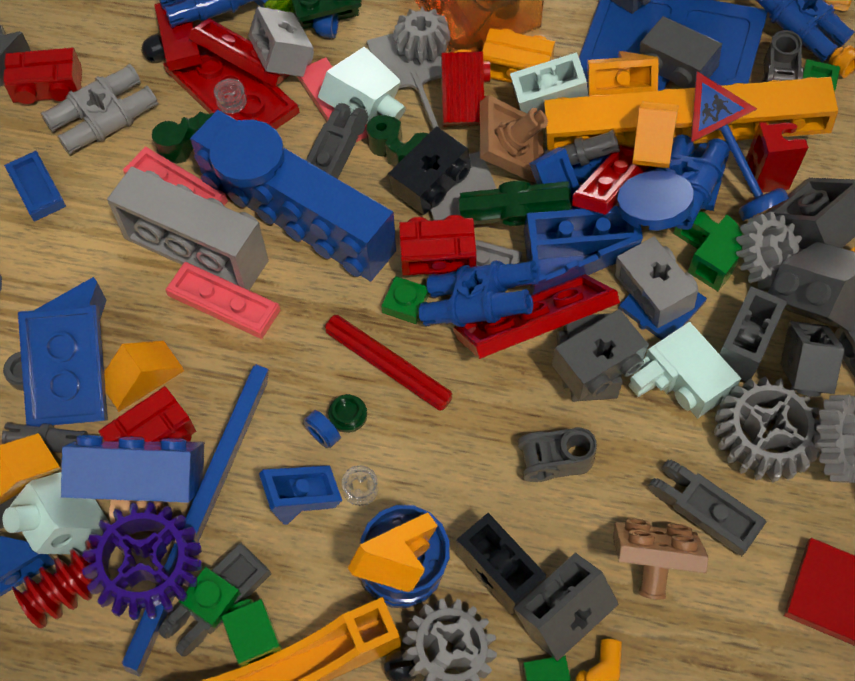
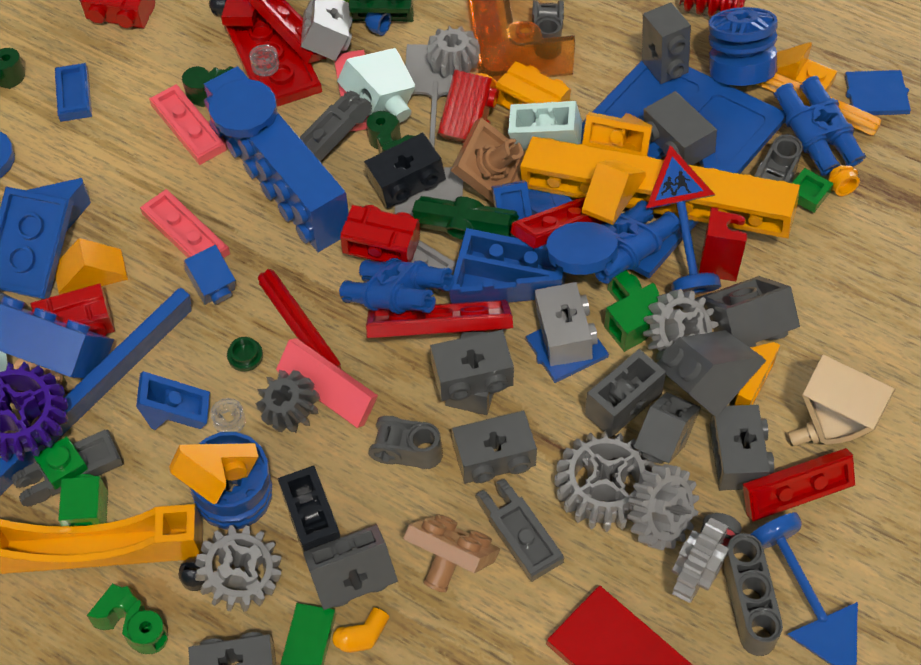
camera: 20 degrees right, 5 degrees down
(99, 109) = (149, 54): light grey pin -> none
(188, 227) = (177, 160): light grey brick -> none
(277, 341) = (210, 275): none -> blue brick
(321, 429) = (215, 359): blue tile -> none
(404, 300) = (335, 272): green plate -> none
(410, 440) = (288, 401): none -> dark grey gear
(448, 417) = (334, 386): none -> coral tile
(584, 150) = (553, 190): dark grey pin -> none
(655, 413) = (507, 434): none -> dark grey brick
(689, 368) = (554, 405): light aqua hinge -> none

